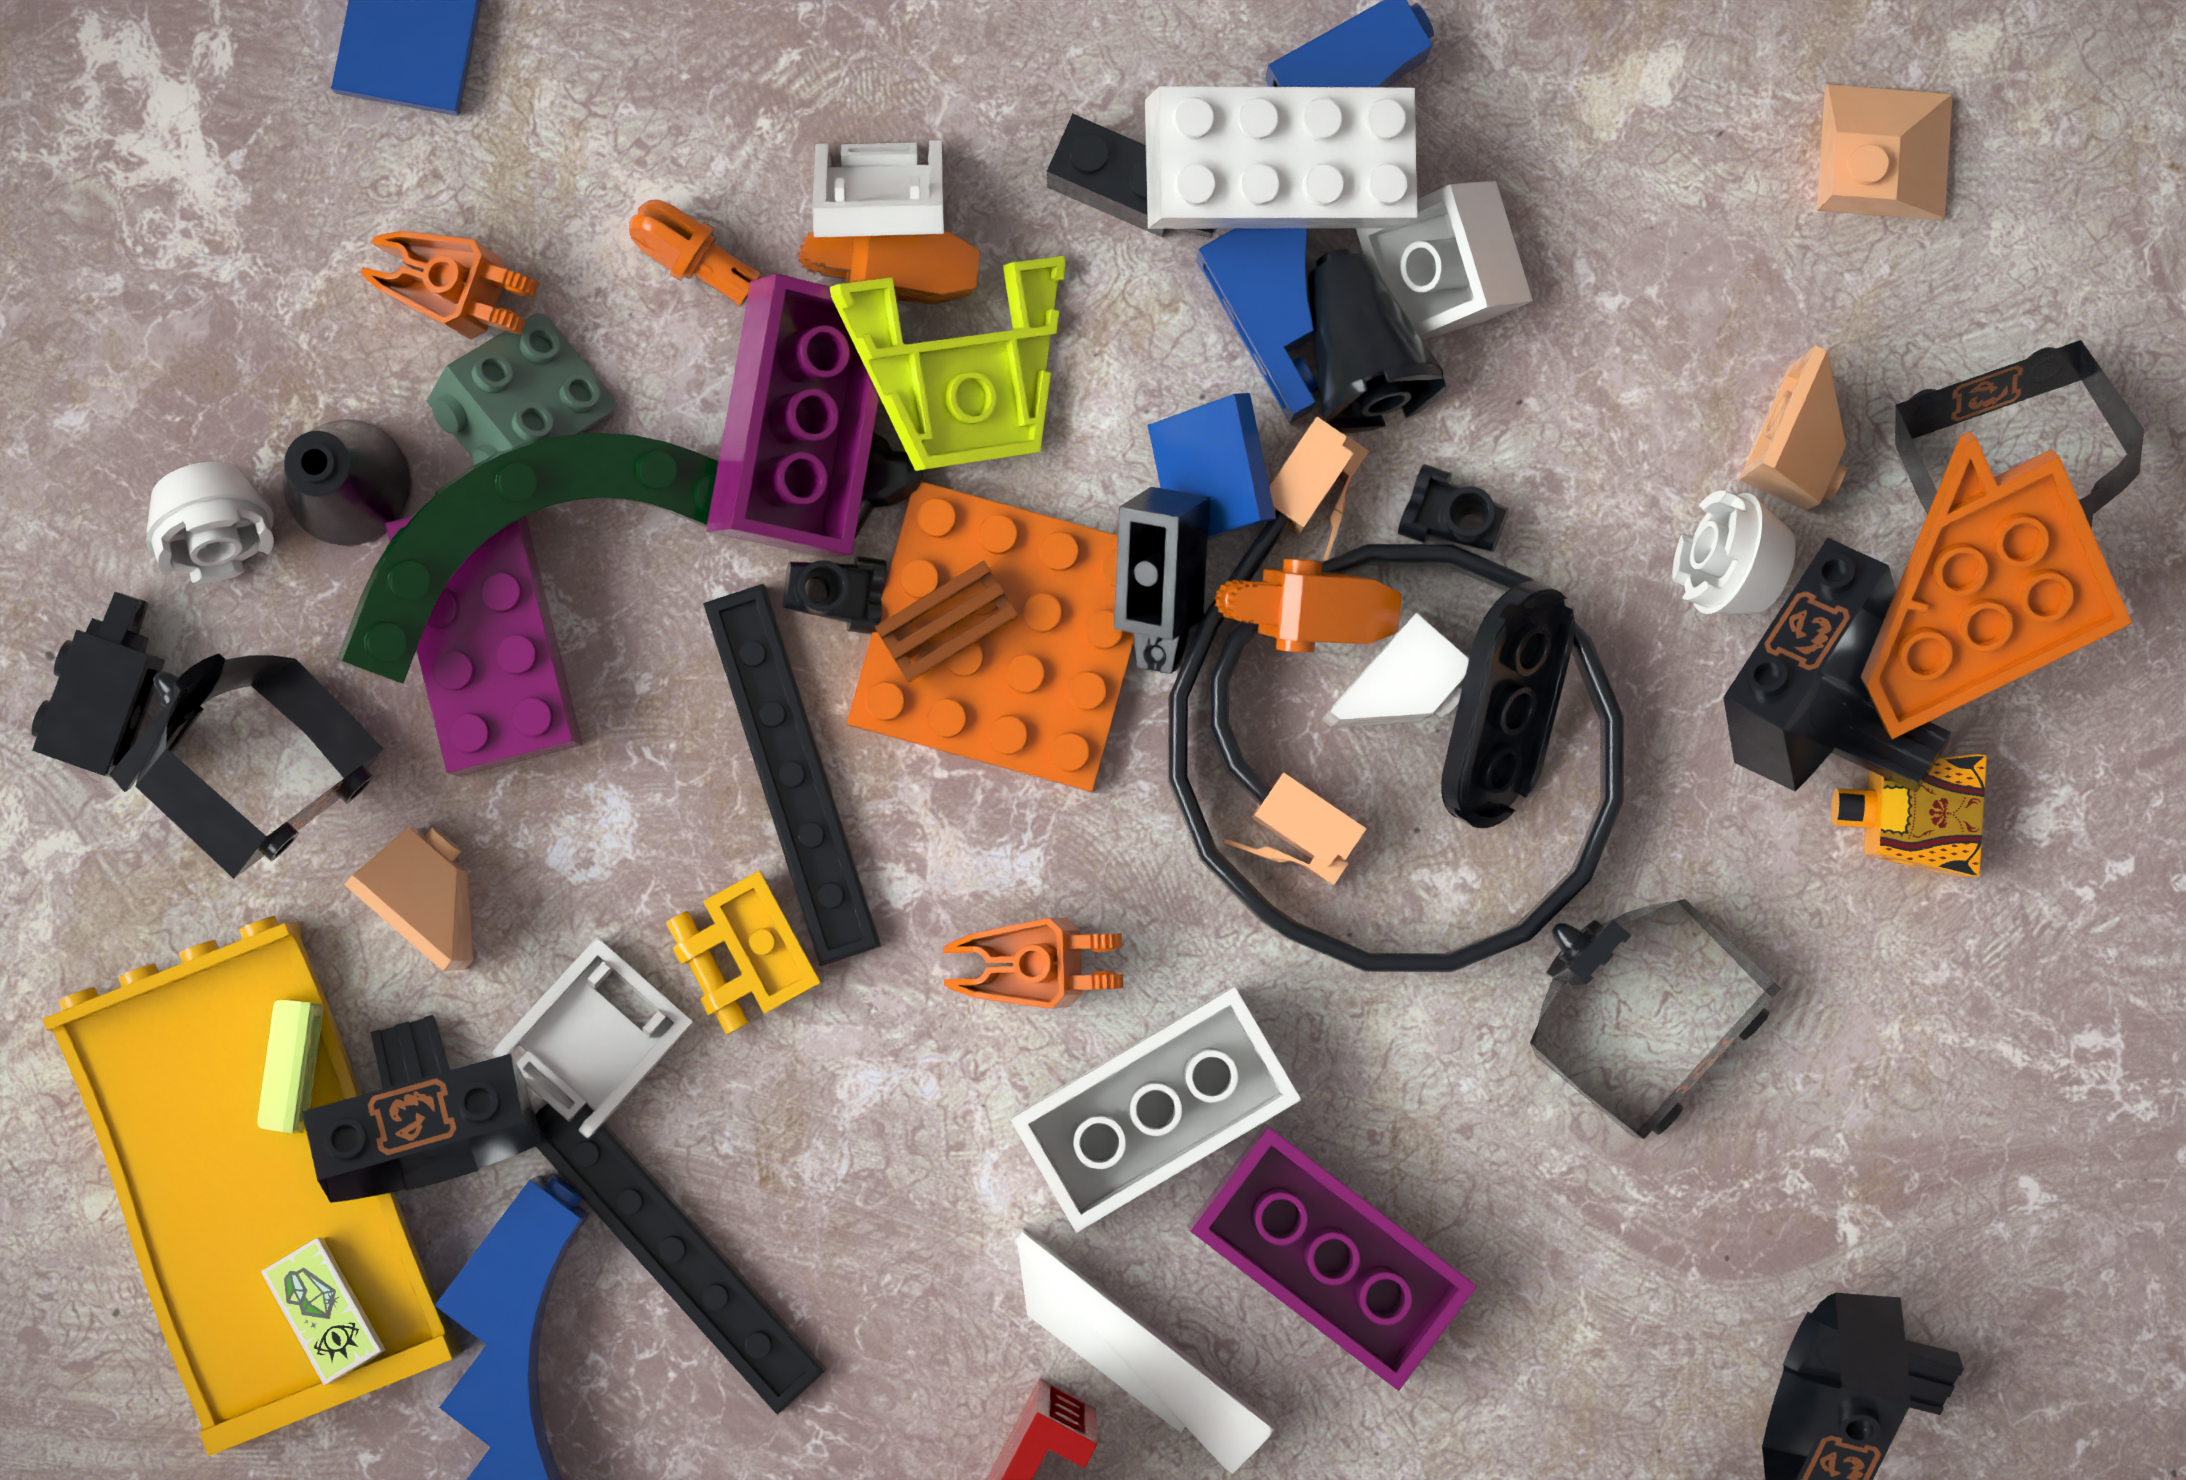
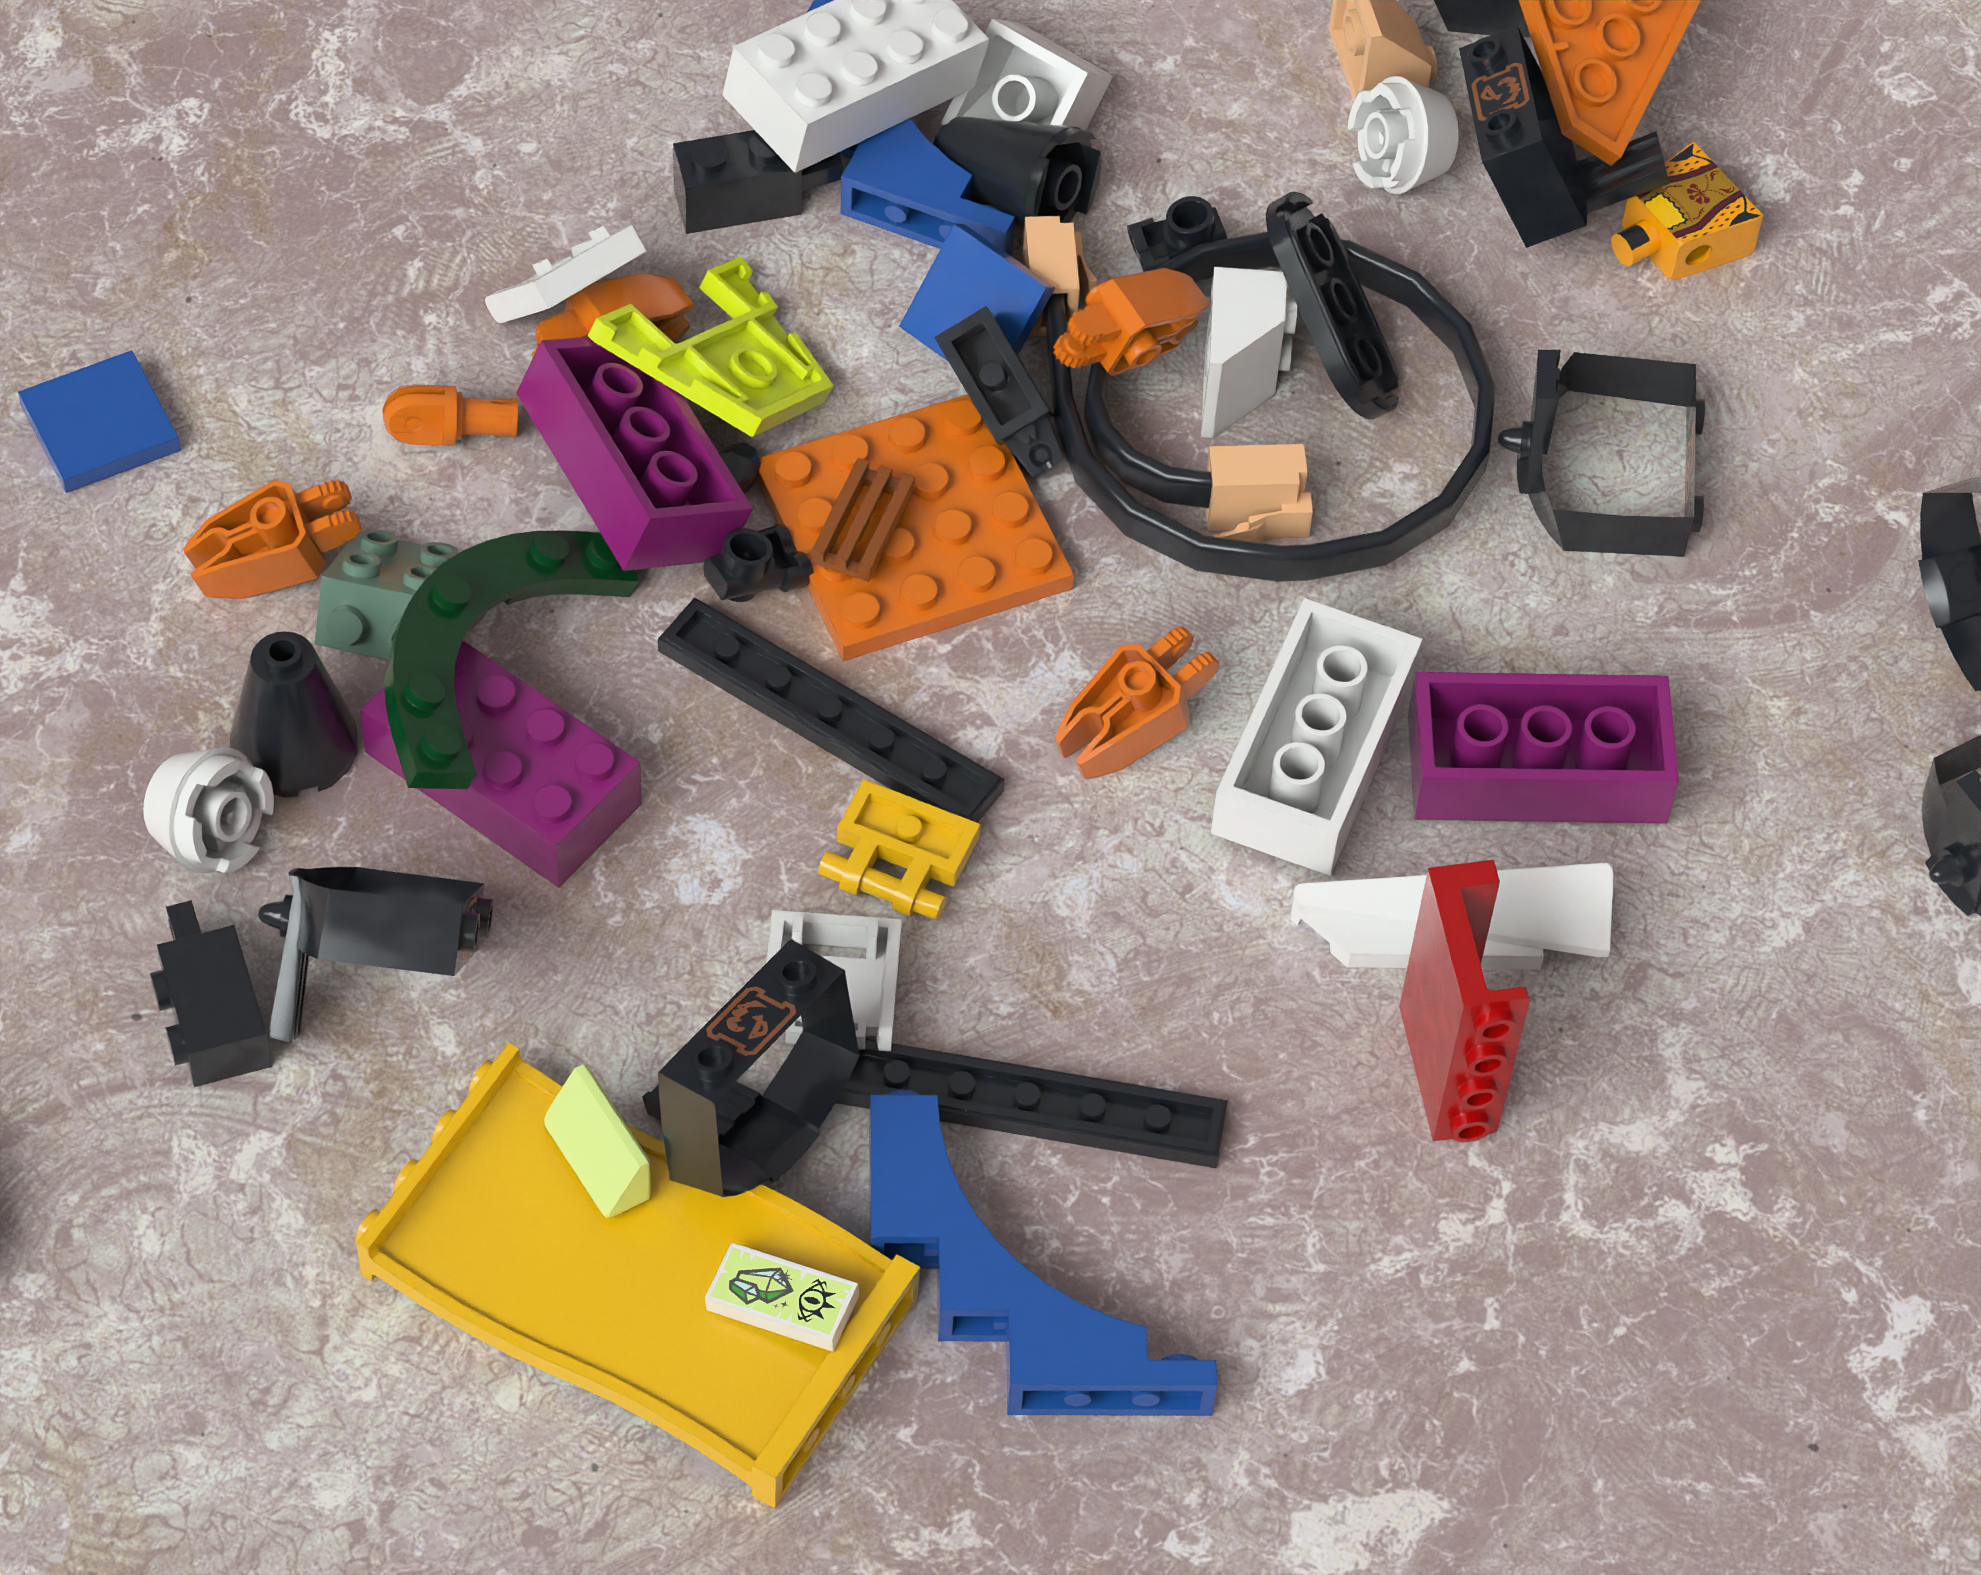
camera: 35 degrees left, 30 degrees down
(421, 895) = (611, 967): light nougat slope -> none

